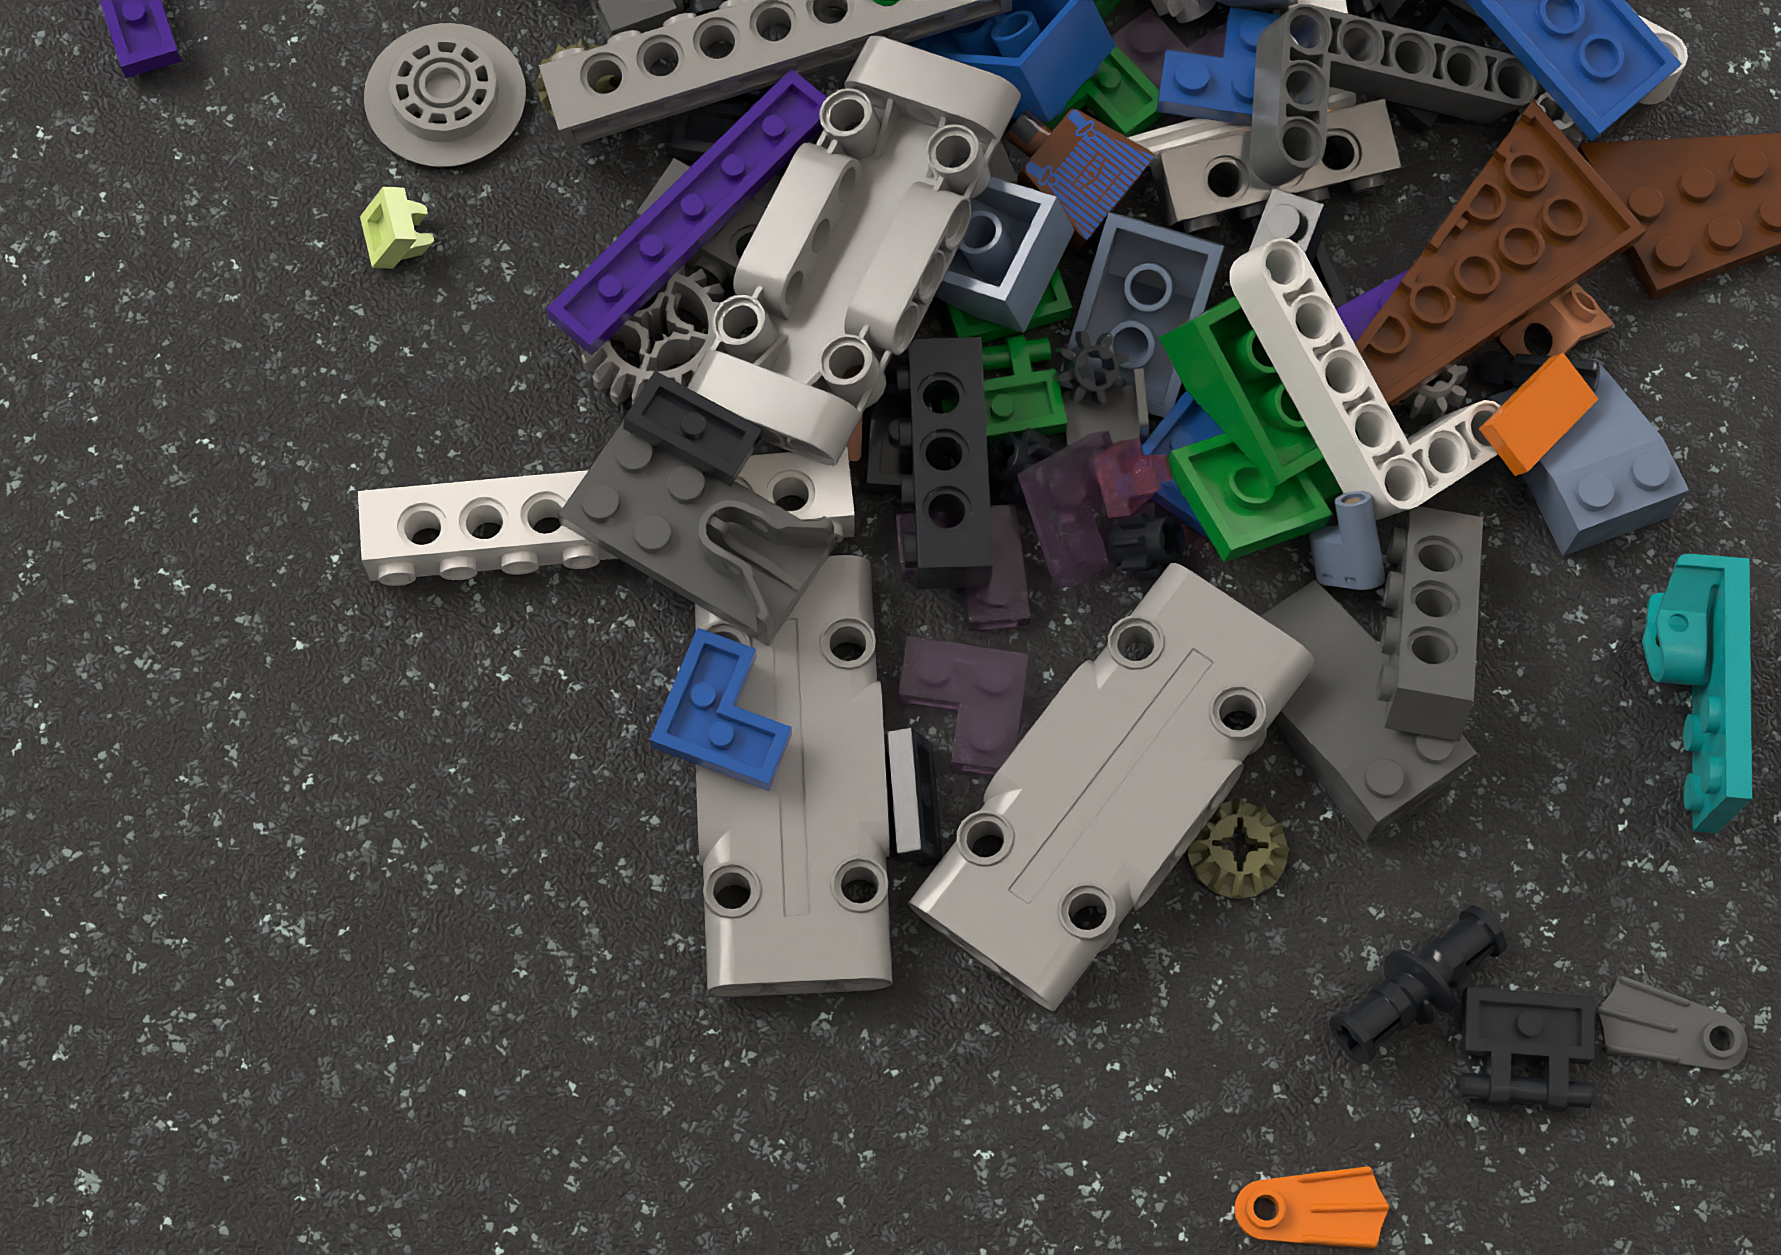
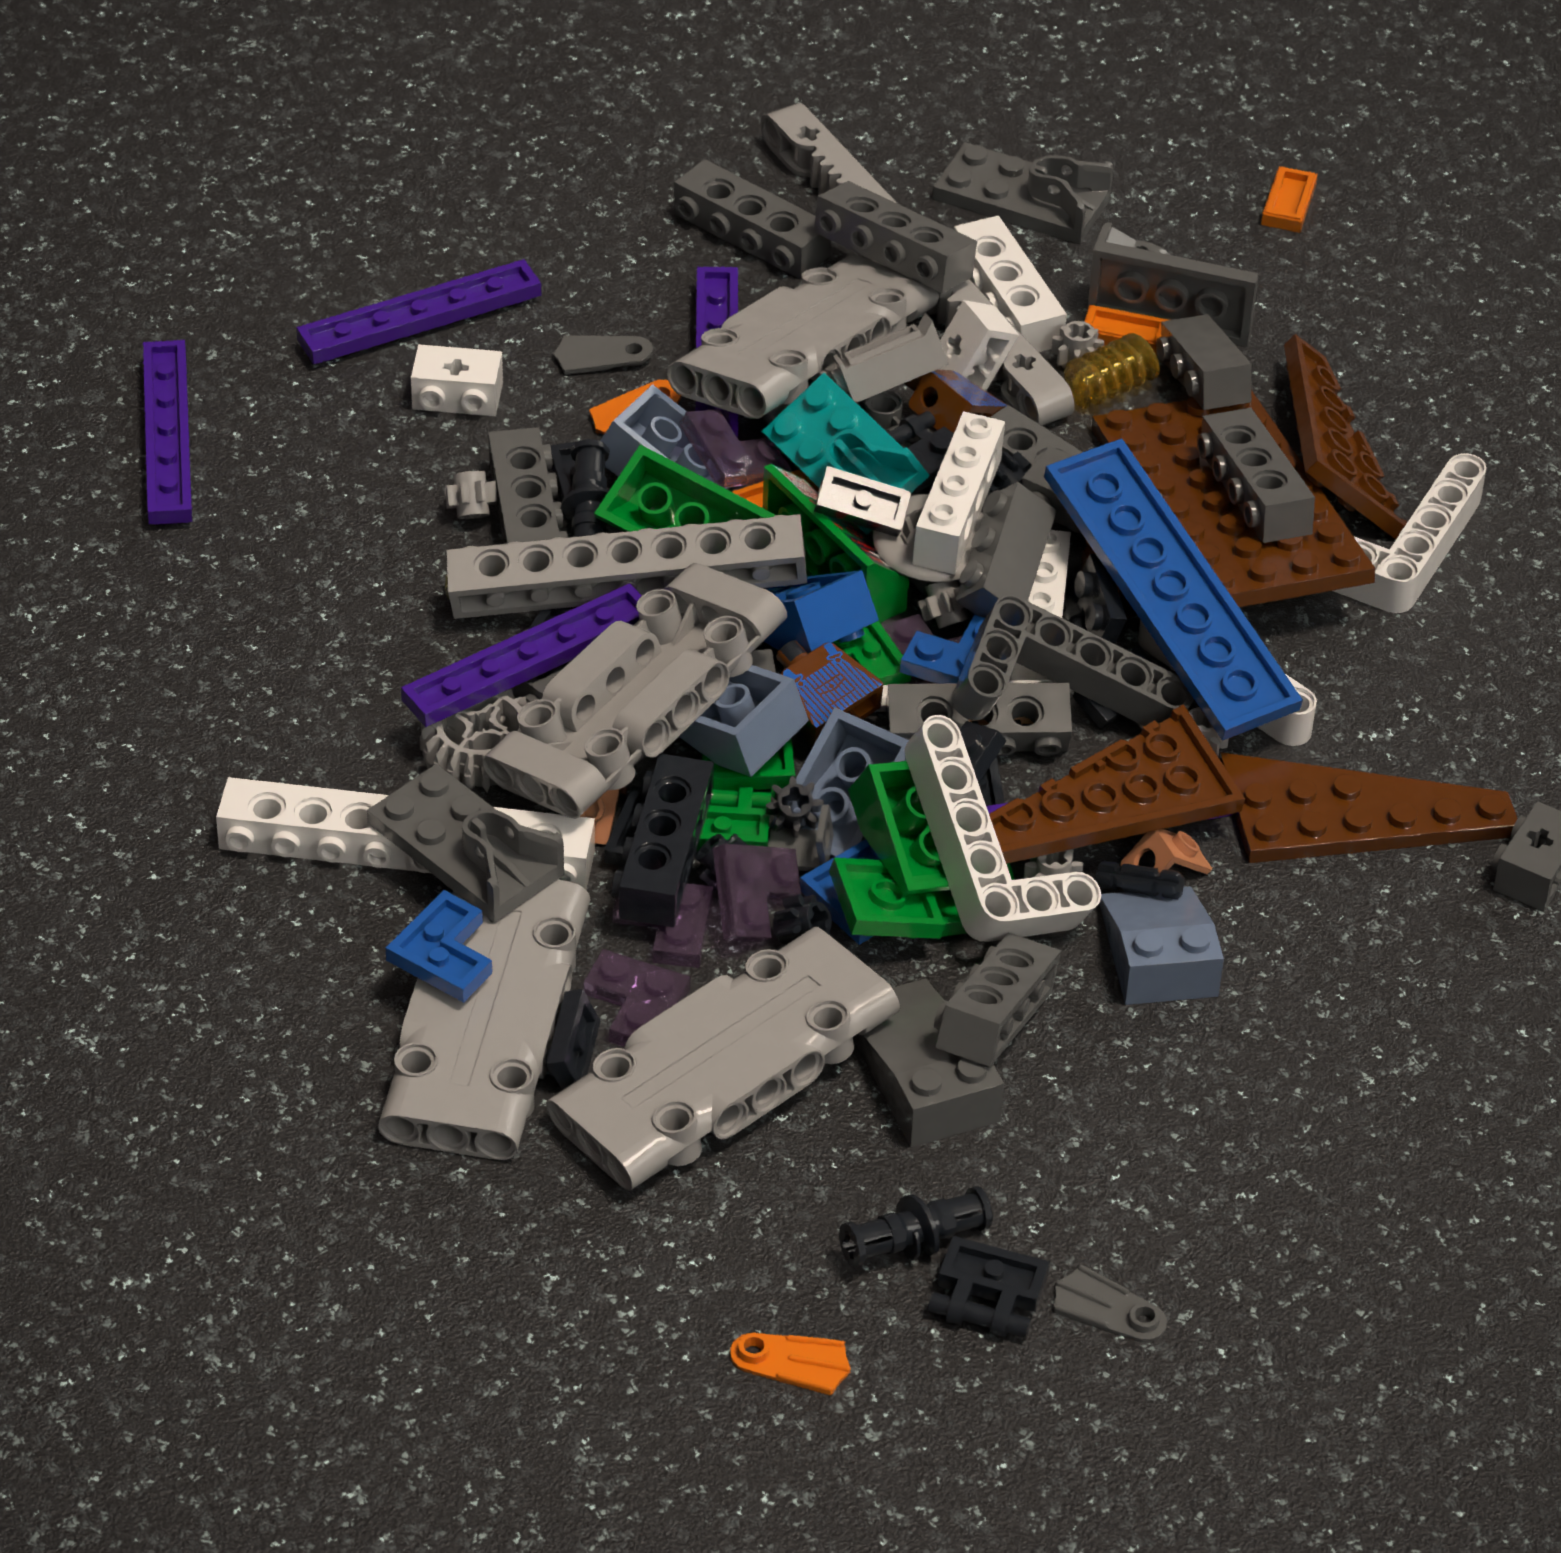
camera: 15 degrees right, 25 degrees down
(390, 228) = (311, 641): yellowish green tile -> none
(440, 74) = (376, 575): light grey wheel -> none
(692, 428) = (481, 771): black plate -> none
(1129, 476) = (798, 872): clear pink tile -> none
(1260, 868) = (824, 1137): olive gear -> none
(1349, 552) = (957, 954): sand blue piece -> none
(1538, 414) = (1122, 891): orange tile -> none
(1707, 645) = (1204, 1066): teal plate -> none

